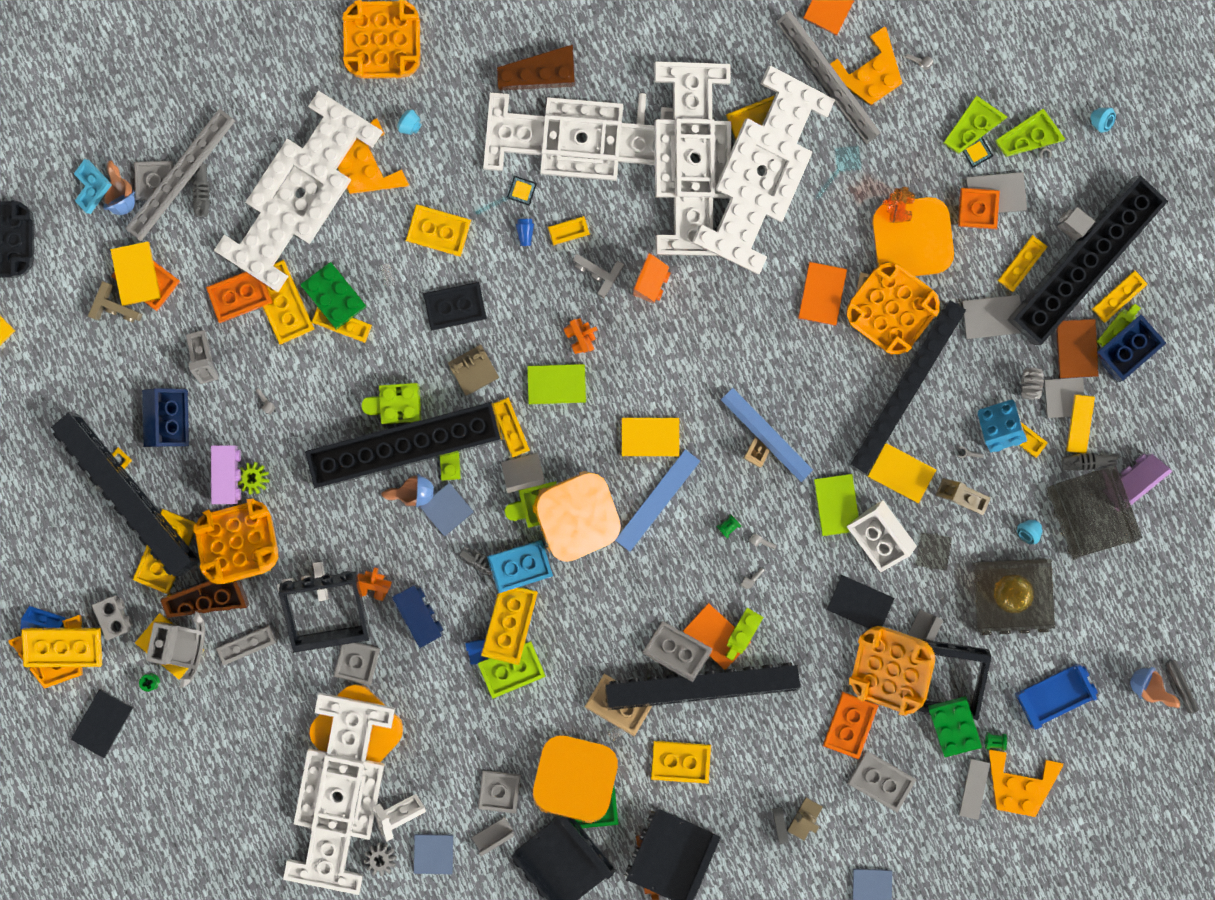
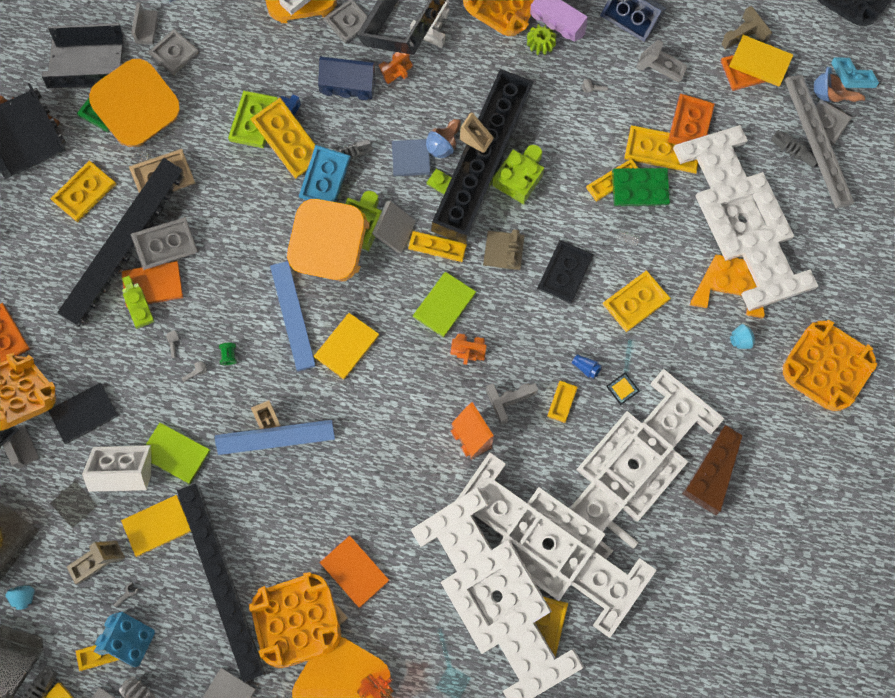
camera: 125 degrees right, 15 degrees down
(395, 459) = (475, 134): none -> tan slope

